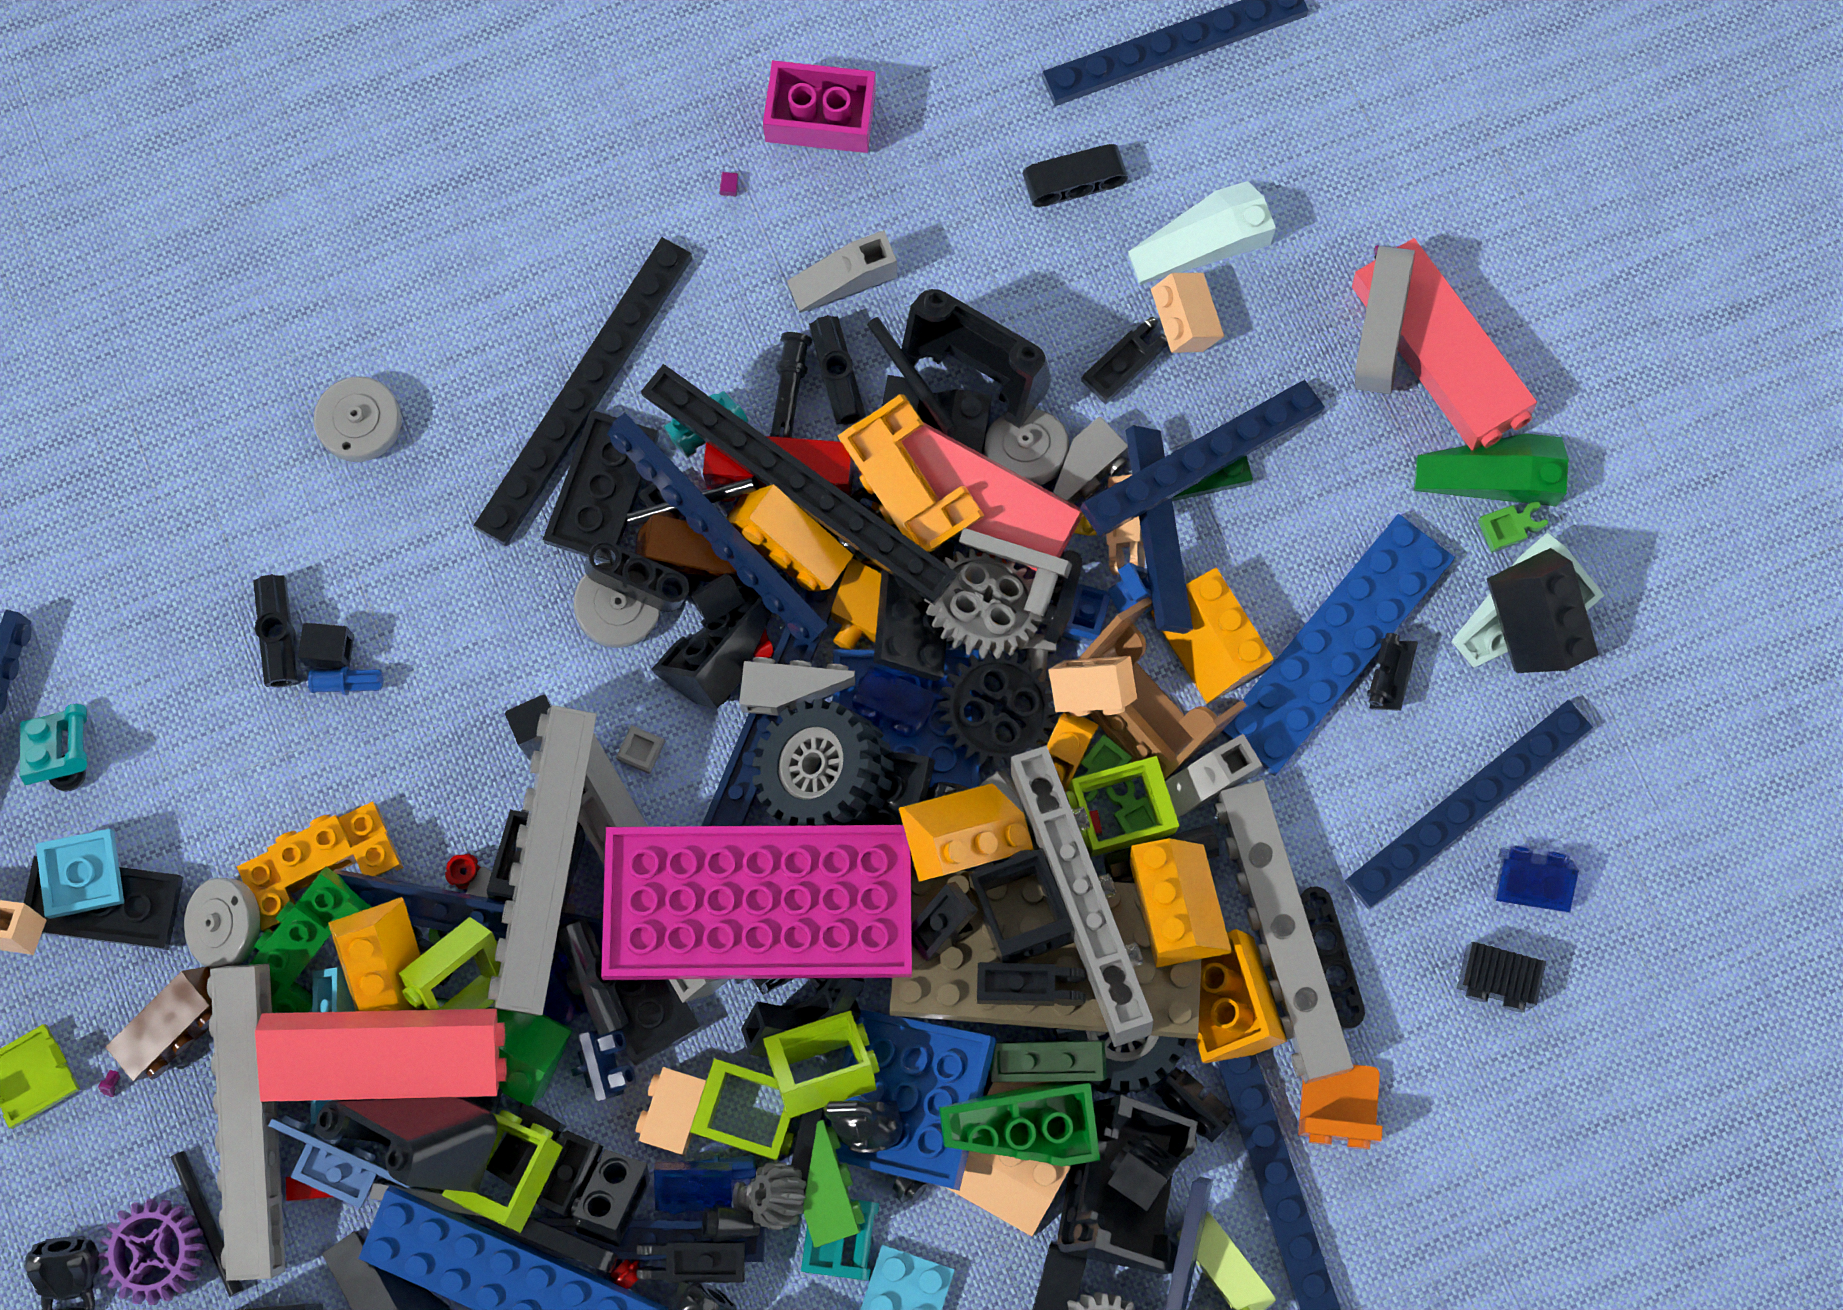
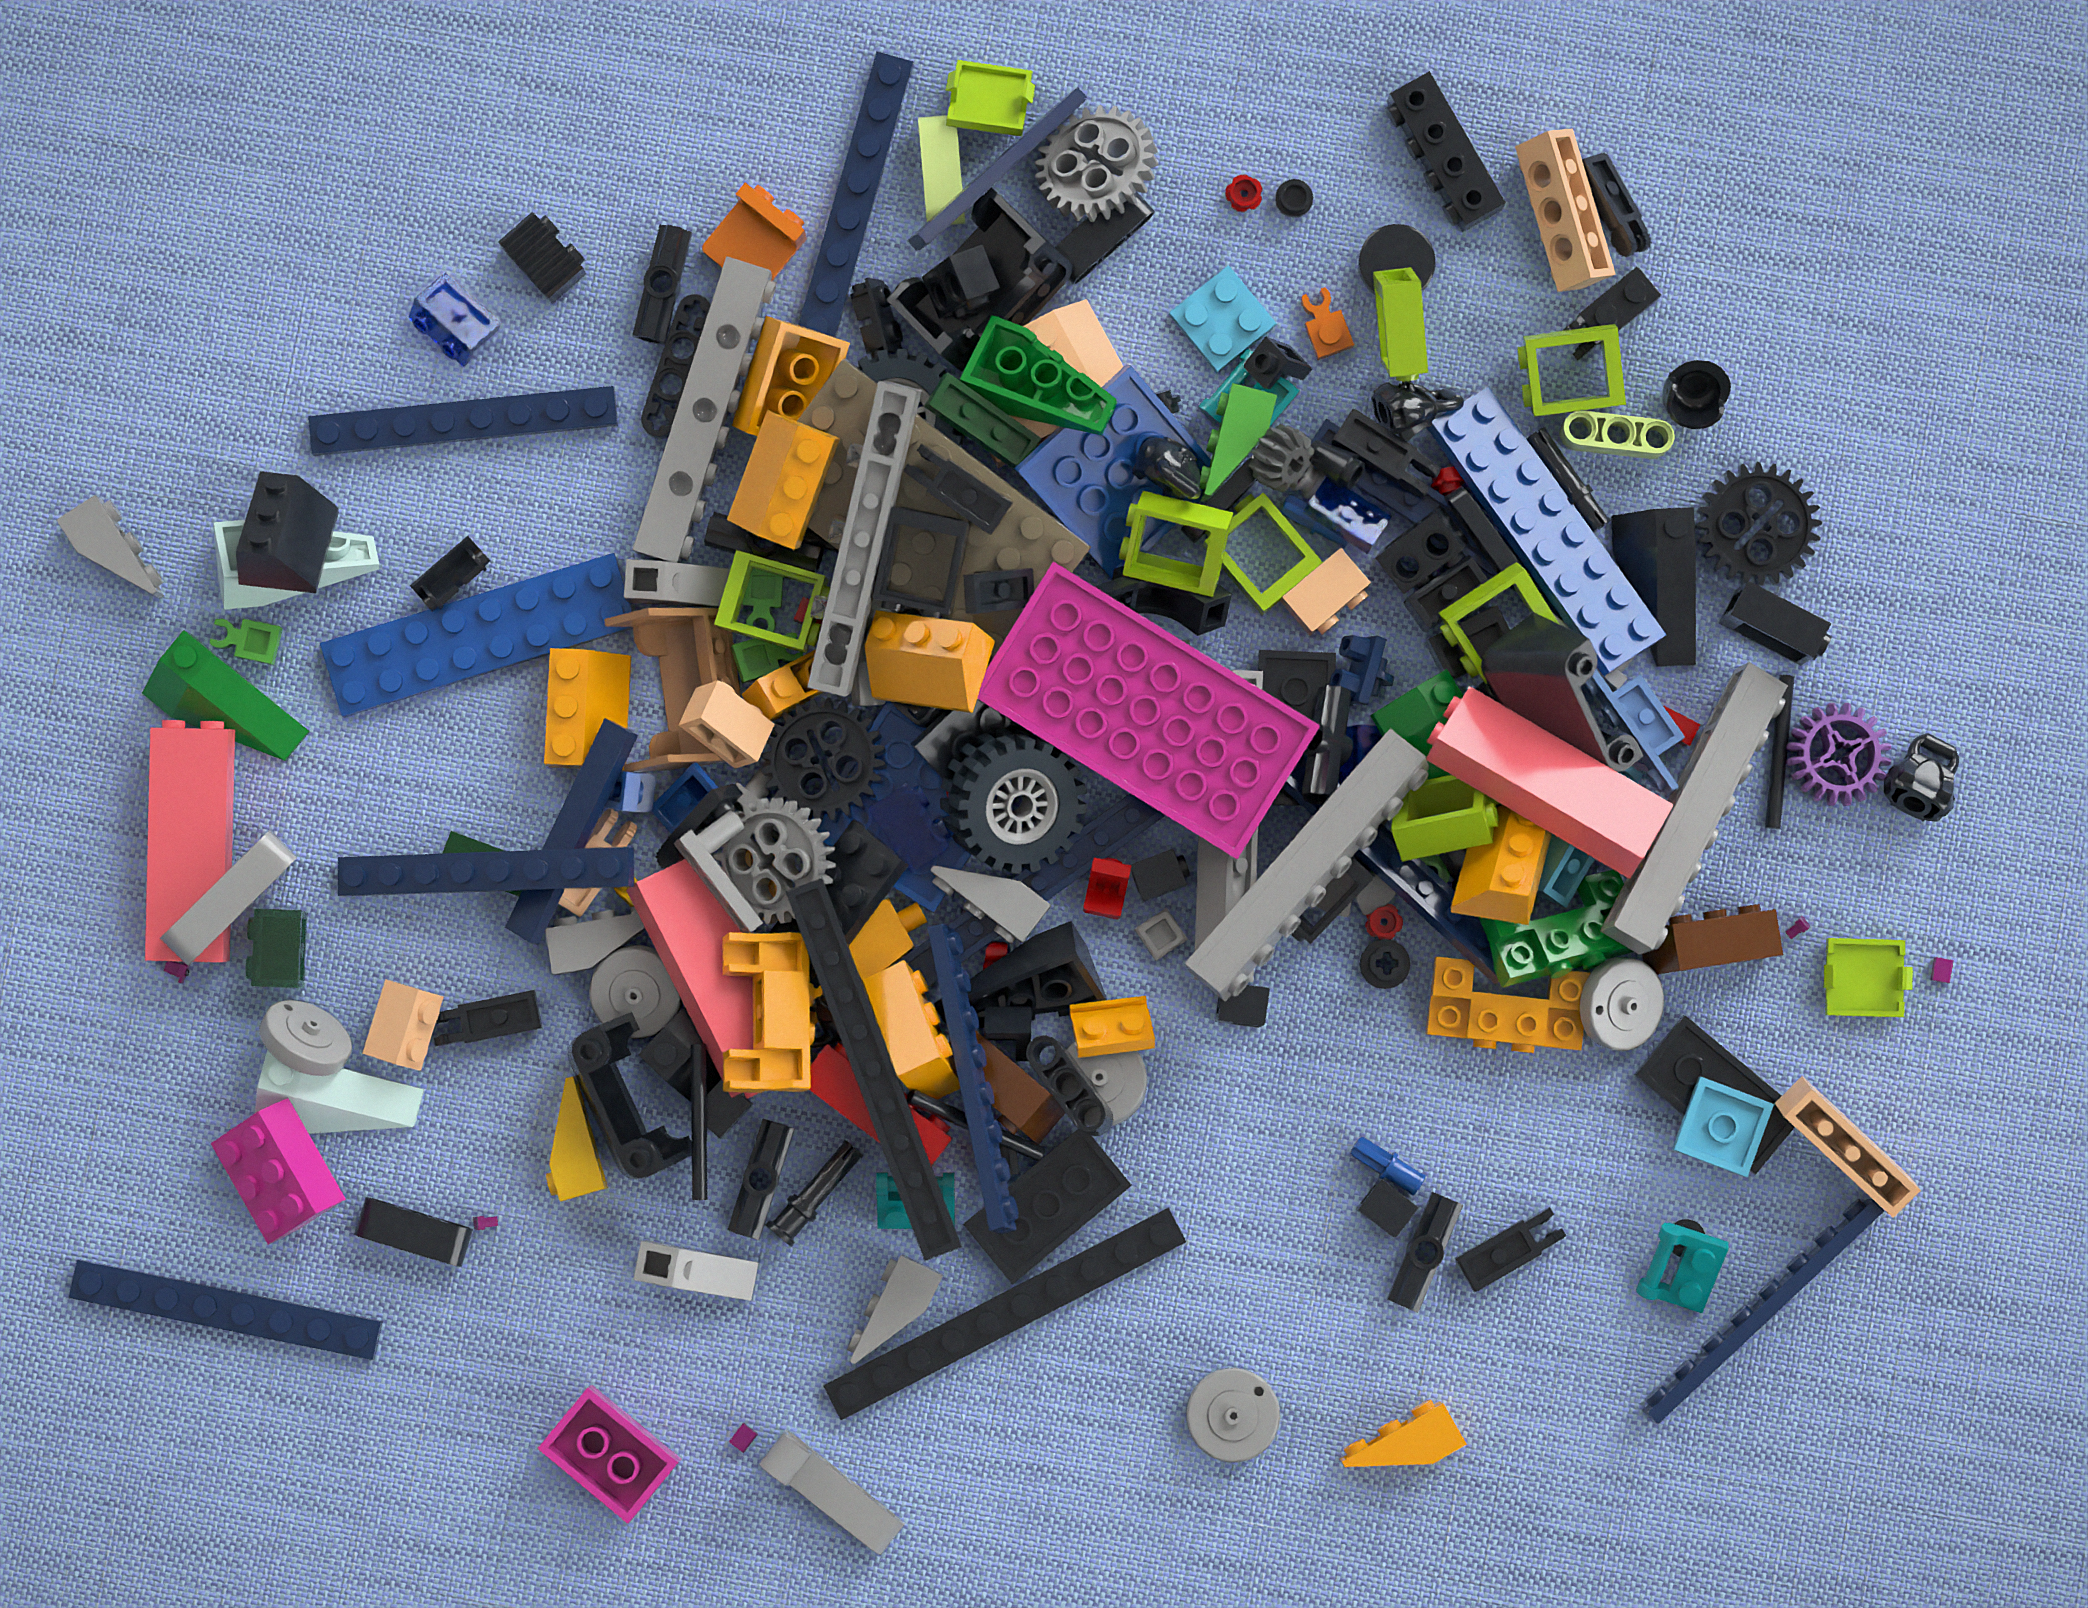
camera: 150 degrees left, 10 degrees up
(200, 484) = (1418, 1440): none -> light orange slope
(208, 675) = (1506, 1251): none -> black hinge
(454, 842) = (1373, 974): none -> black piece
(633, 649) = (1112, 1026): none -> light orange plate
(638, 182) = (832, 1492): none -> light grey beam
(669, 792) = (1159, 875): none -> black brick
(671, 335) = (903, 1300): none -> light grey slope
(705, 753) = (1107, 888): none -> red bracket
(837, 1281) = (1275, 360): none -> black bracket
(989, 293) = (574, 1153): none -> yellow slope
(1026, 216) = (480, 1222): none -> magenta piece
(1205, 149) = (277, 1171): none -> dark pink brick
(1253, 254) = (305, 1038): none -> light grey wheel
(1321, 312) = (277, 948): none -> clear green brick
(1398, 1040) = (666, 260): none -> black piece
(1677, 528) = (98, 536): none -> light grey slope

